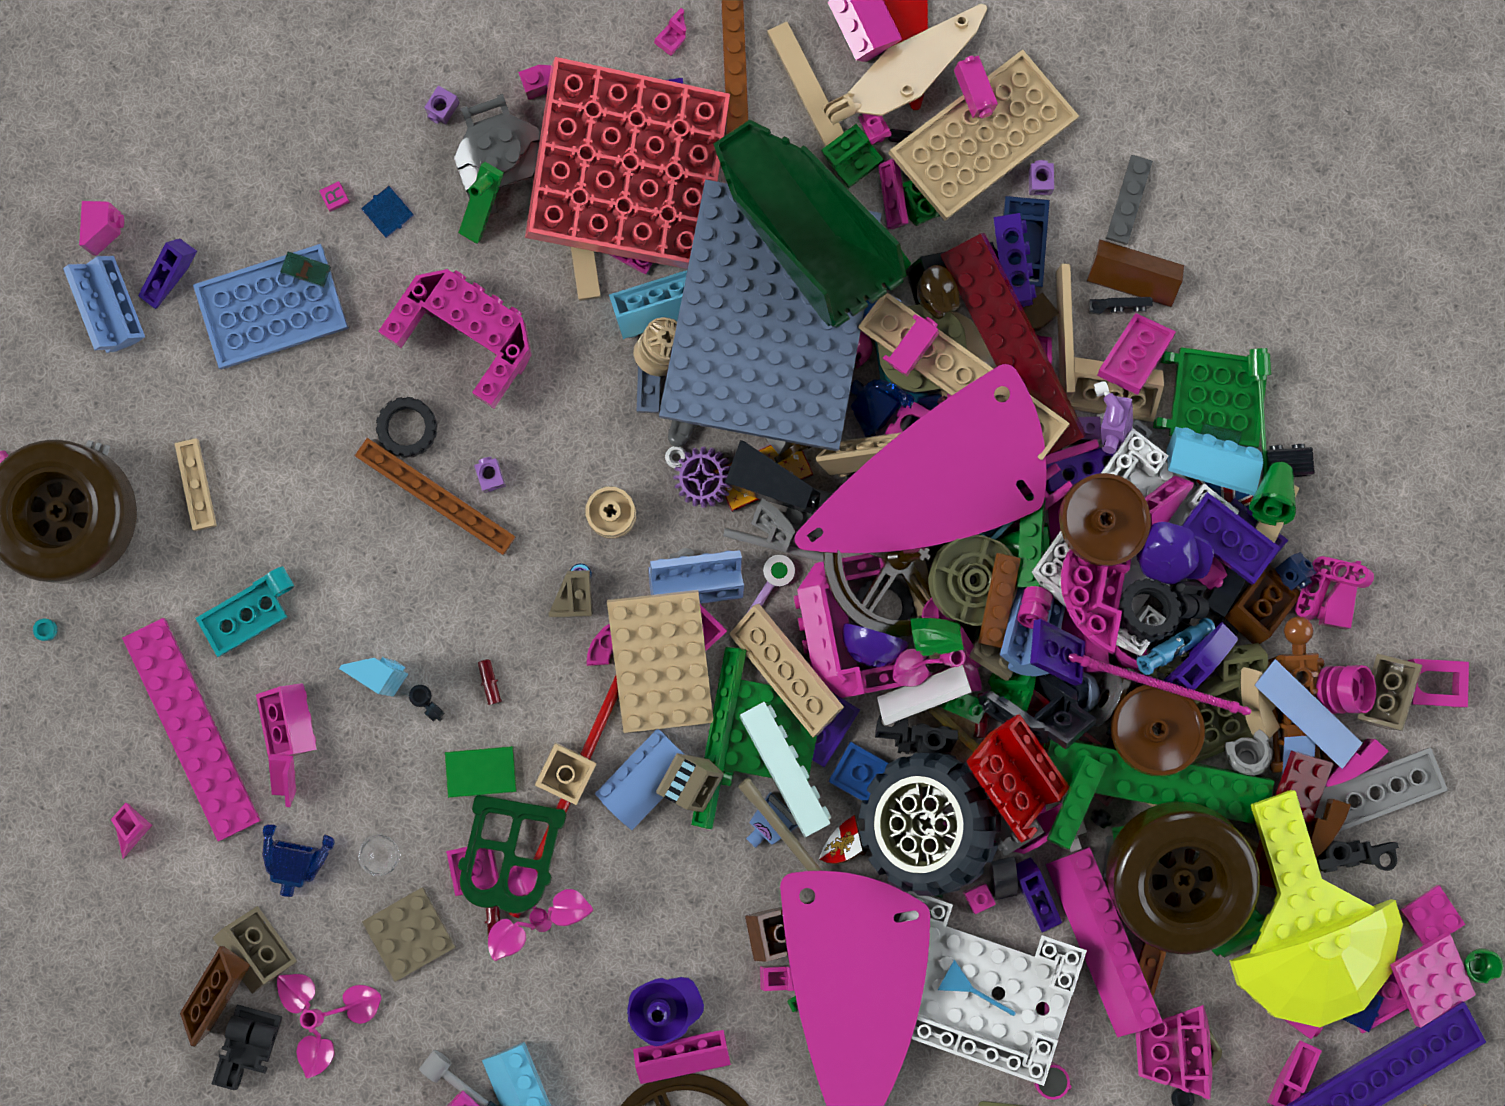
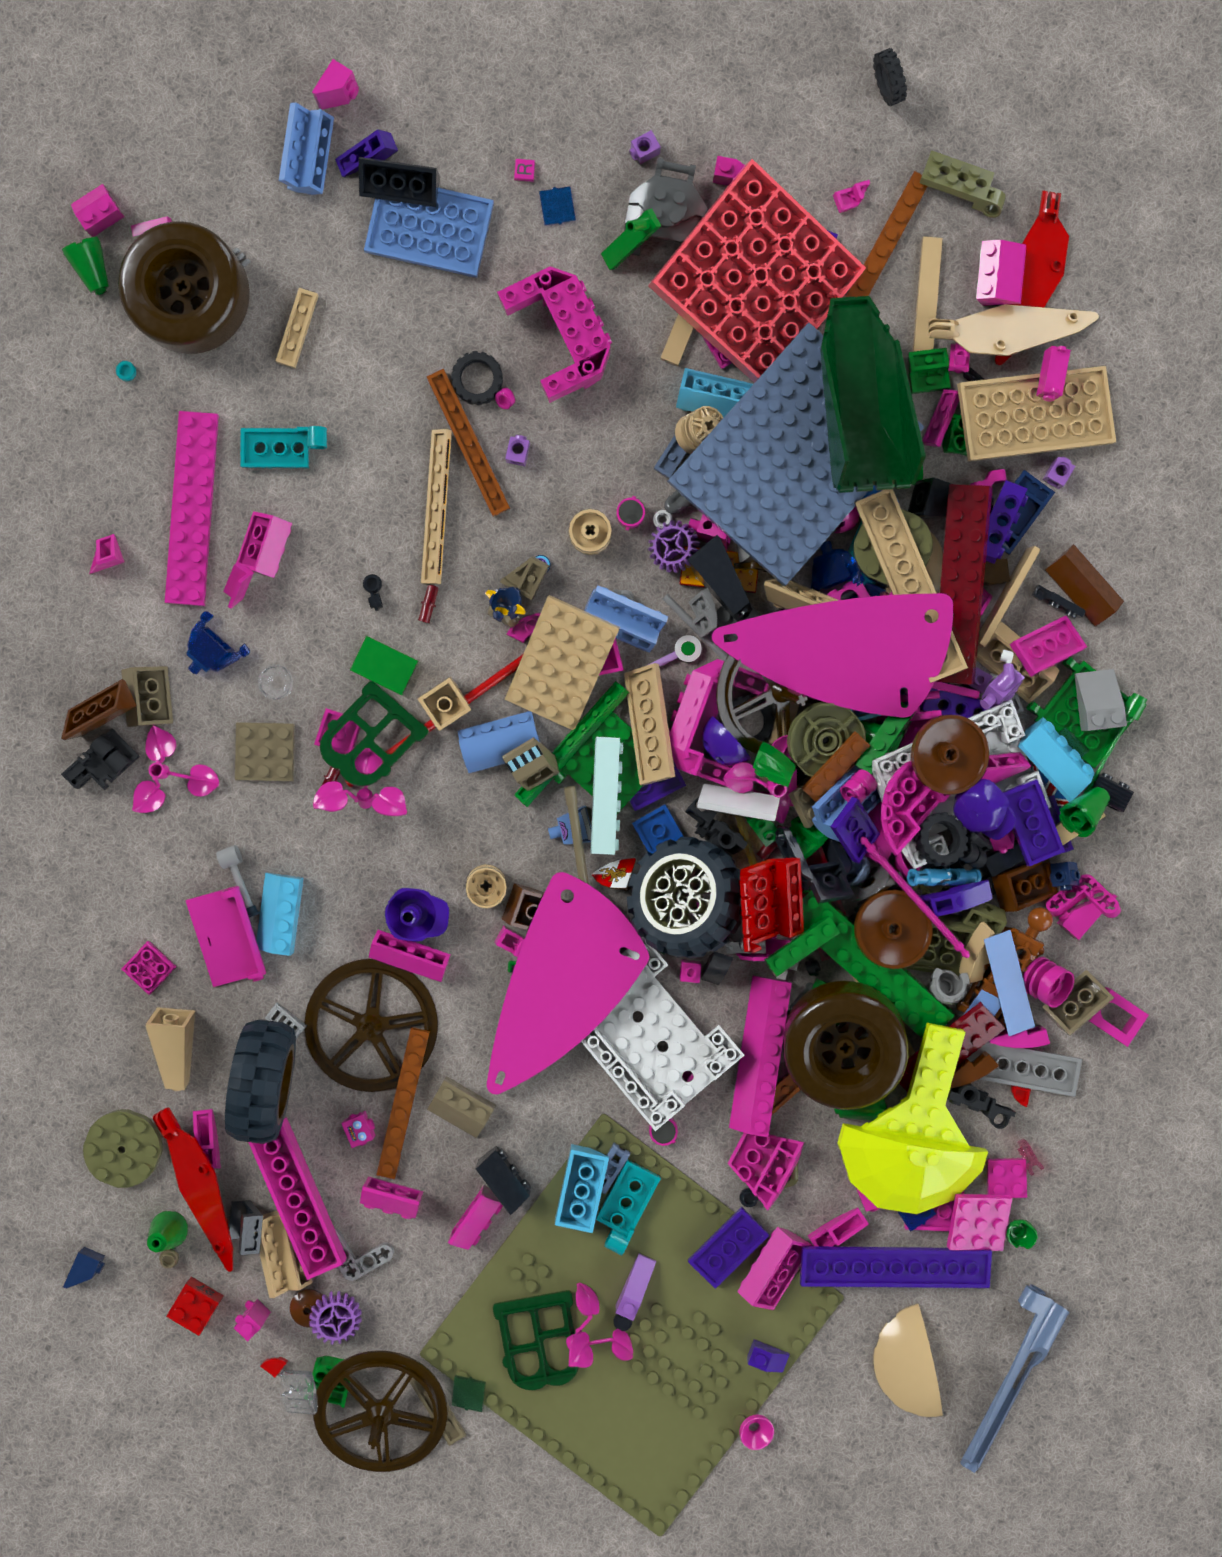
camera: 25 degrees right, 5 degrees up
(215, 281) = (398, 181): none -> black slope
(305, 269) = (470, 213): clear green tile -> none
(379, 675) = (349, 550): medium azure slope -> none
(440, 580) = (436, 506): none -> tan plate
(446, 430) = (505, 398): none -> dark pink tile
(569, 637) = (505, 605): none -> dark blue hair
(640, 469) = (630, 513): none -> pearl dark grey piece
(729, 446) = (708, 530): none -> dark pink torso
(731, 937) = (480, 896): none -> tan wheel
(913, 345) = (888, 540): dark pink brick -> none
(939, 290) = (932, 511): dark brown helmet -> none
(957, 981) = (639, 1021): dark azure piece -> none
(979, 221) = (992, 477): none -> dark pink piece
(1037, 895) = (733, 993): dark purple slope -> none
(1129, 199) = (1114, 527): dark grey plate -> none
(1221, 377) = (1099, 700): none -> light grey slope
(1392, 821) = (1021, 1094): none -> red tile
(1435, 877) = (1027, 1152): none -> clear pink plate

